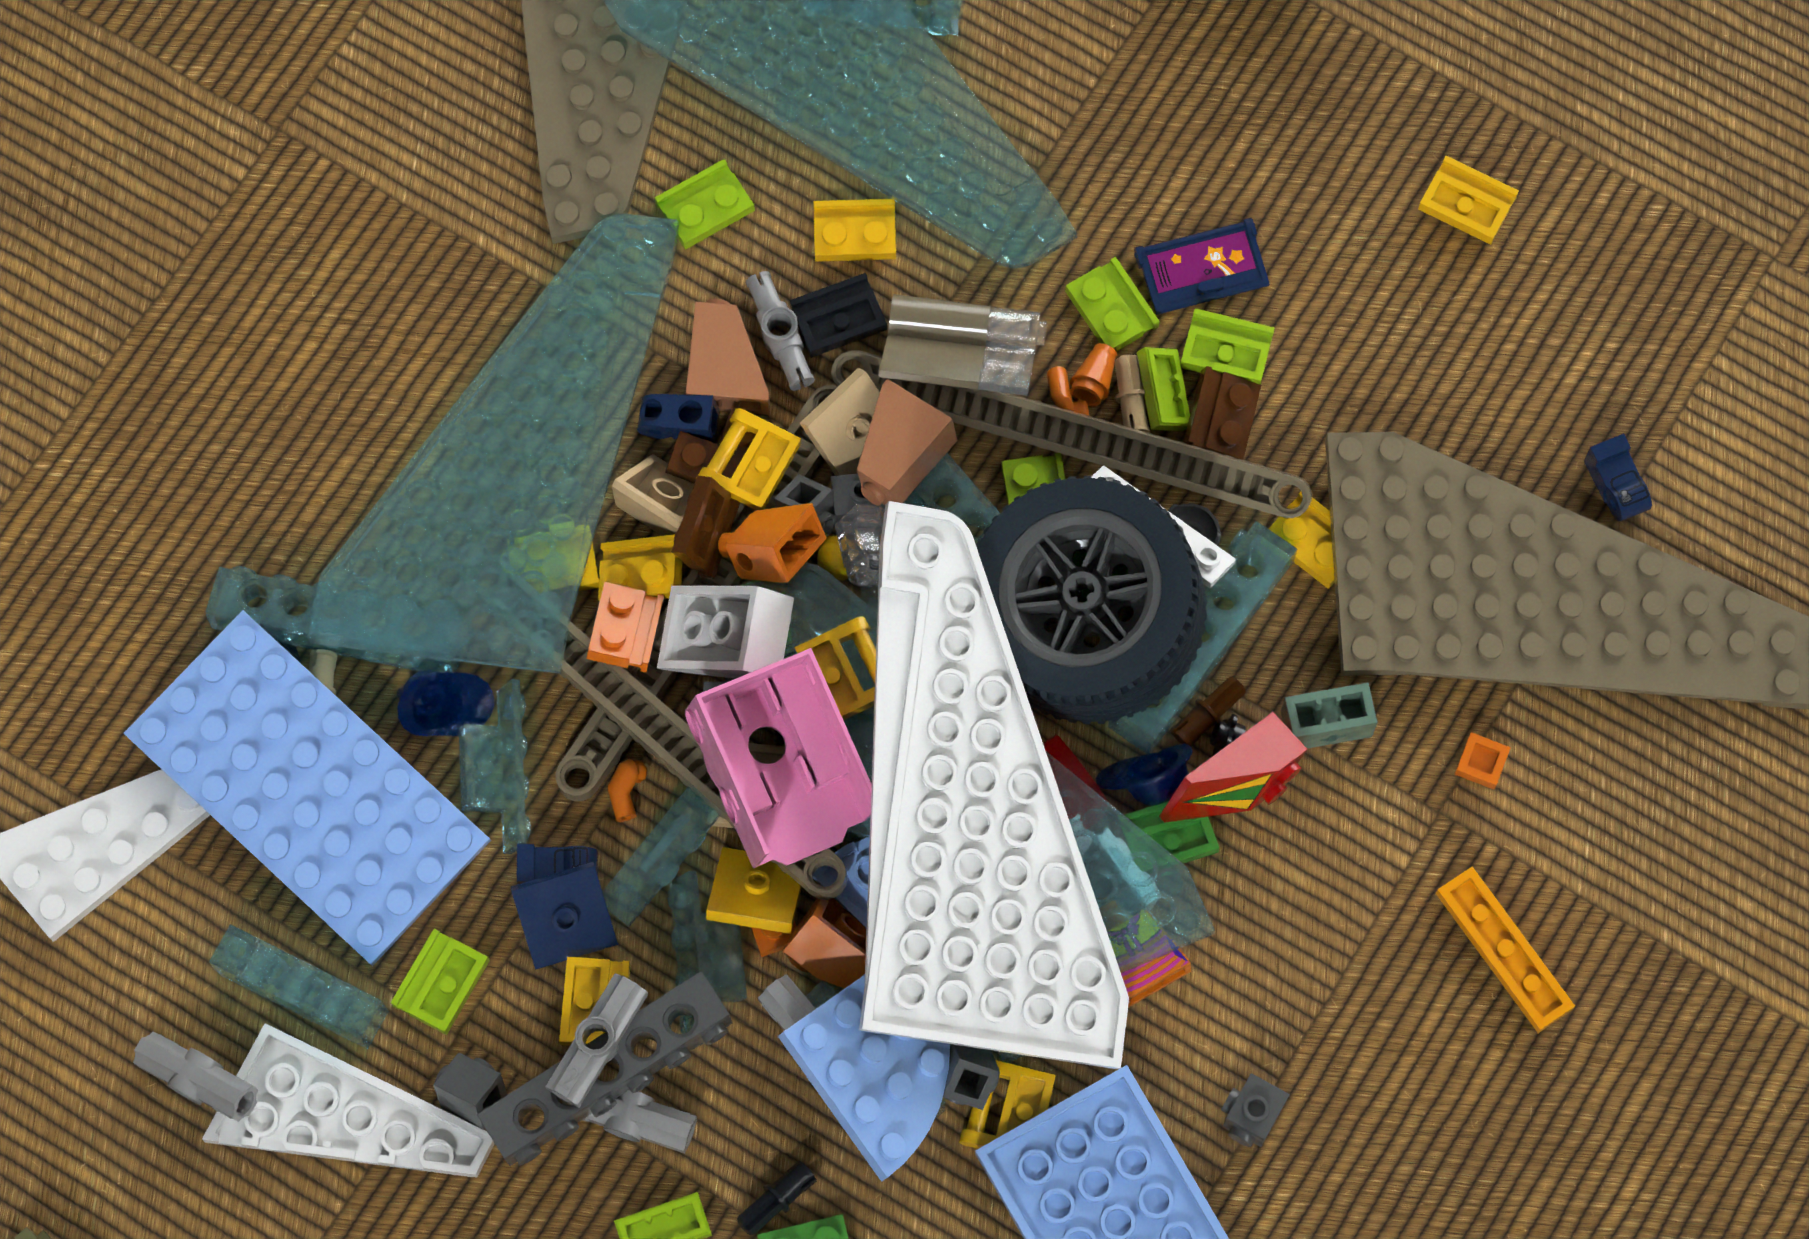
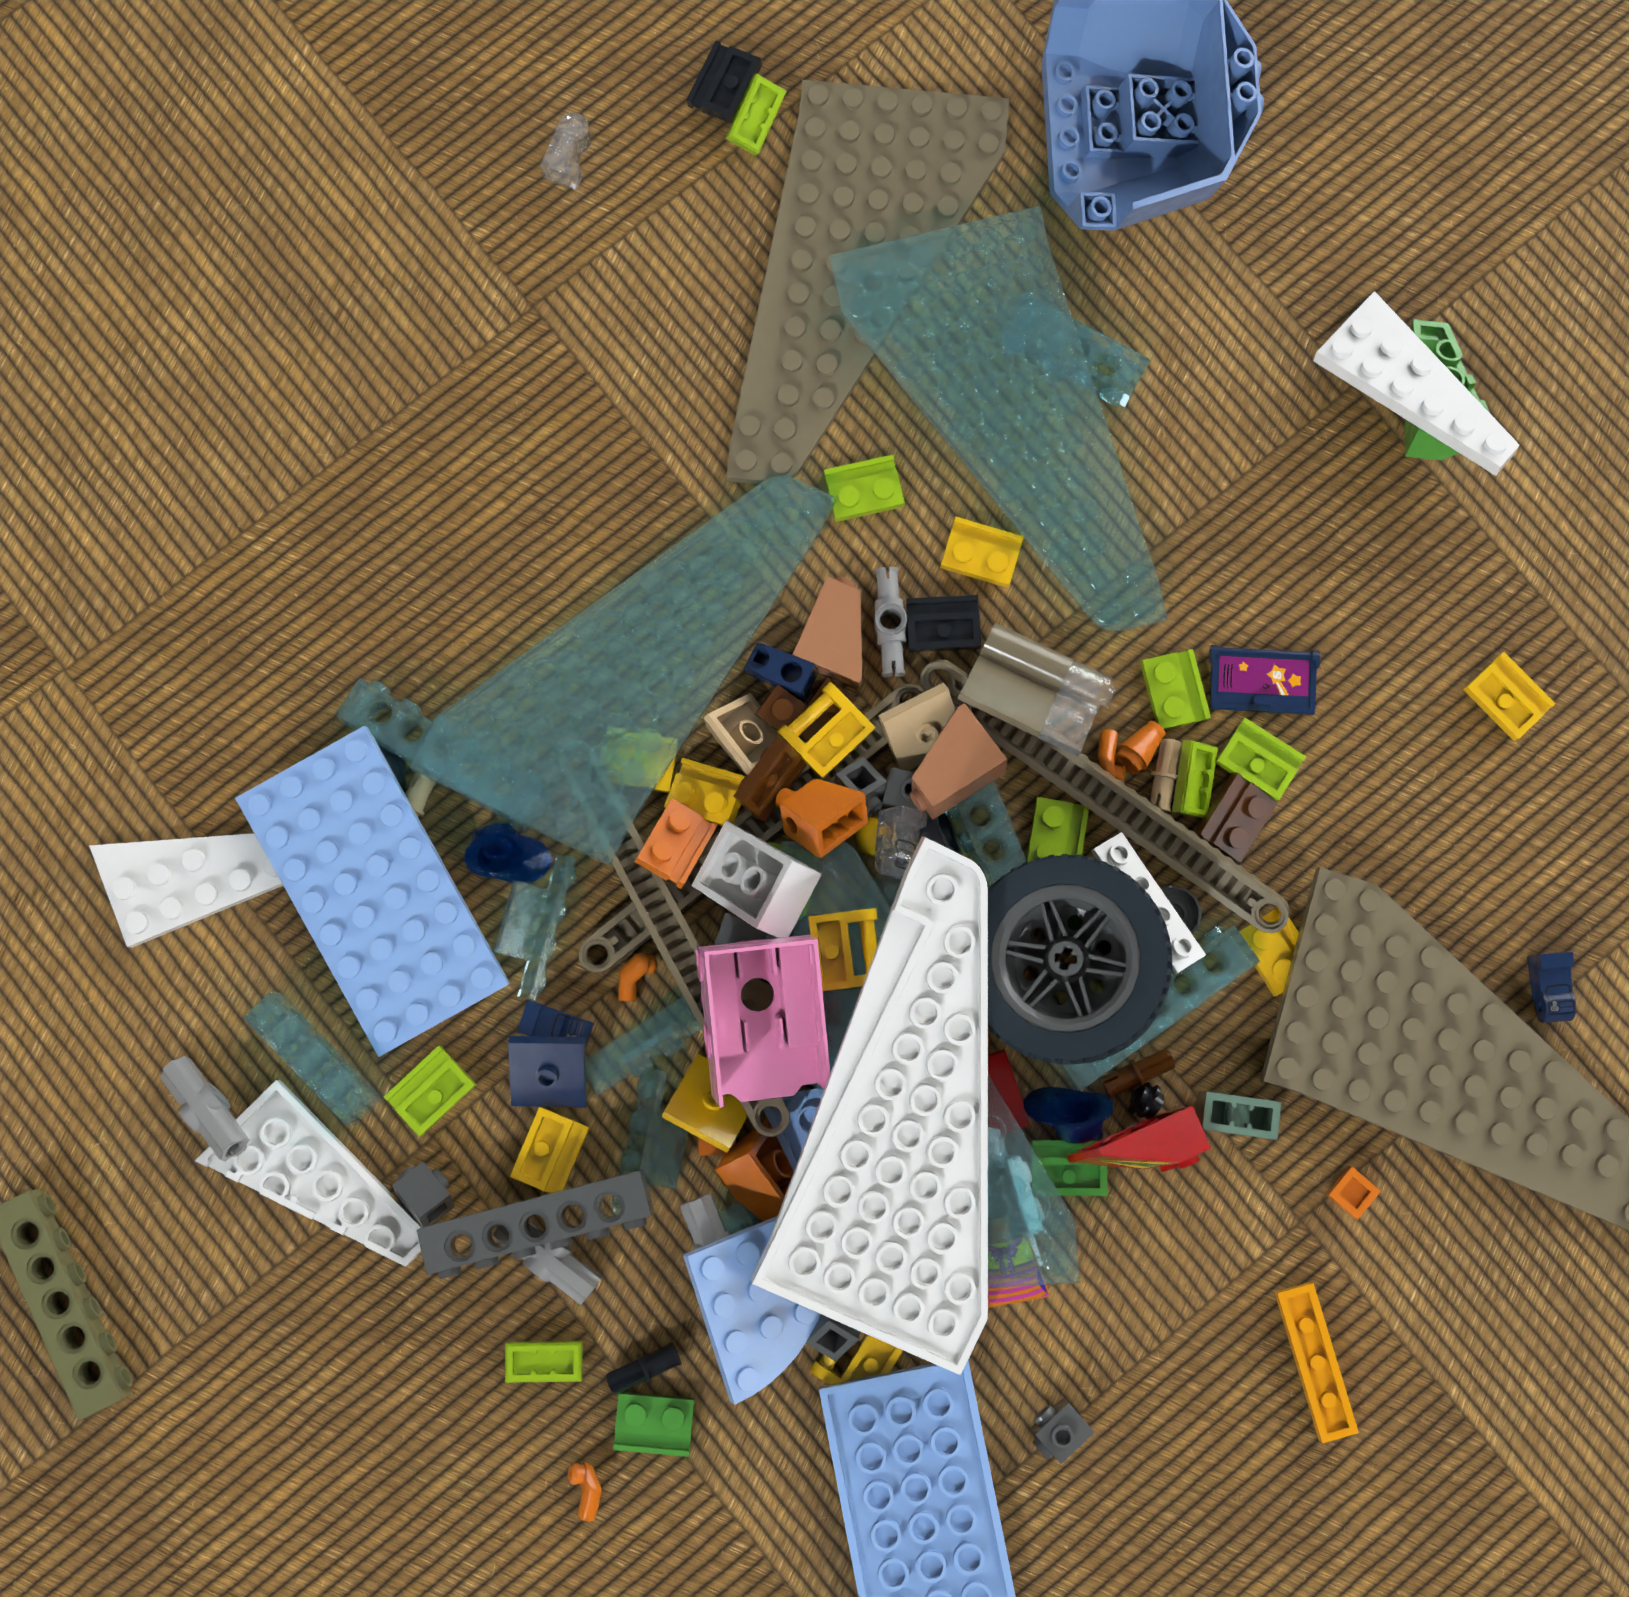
camera: 15 degrees right, 10 degrees up
(583, 1065) = (514, 1222): light grey piece -> none

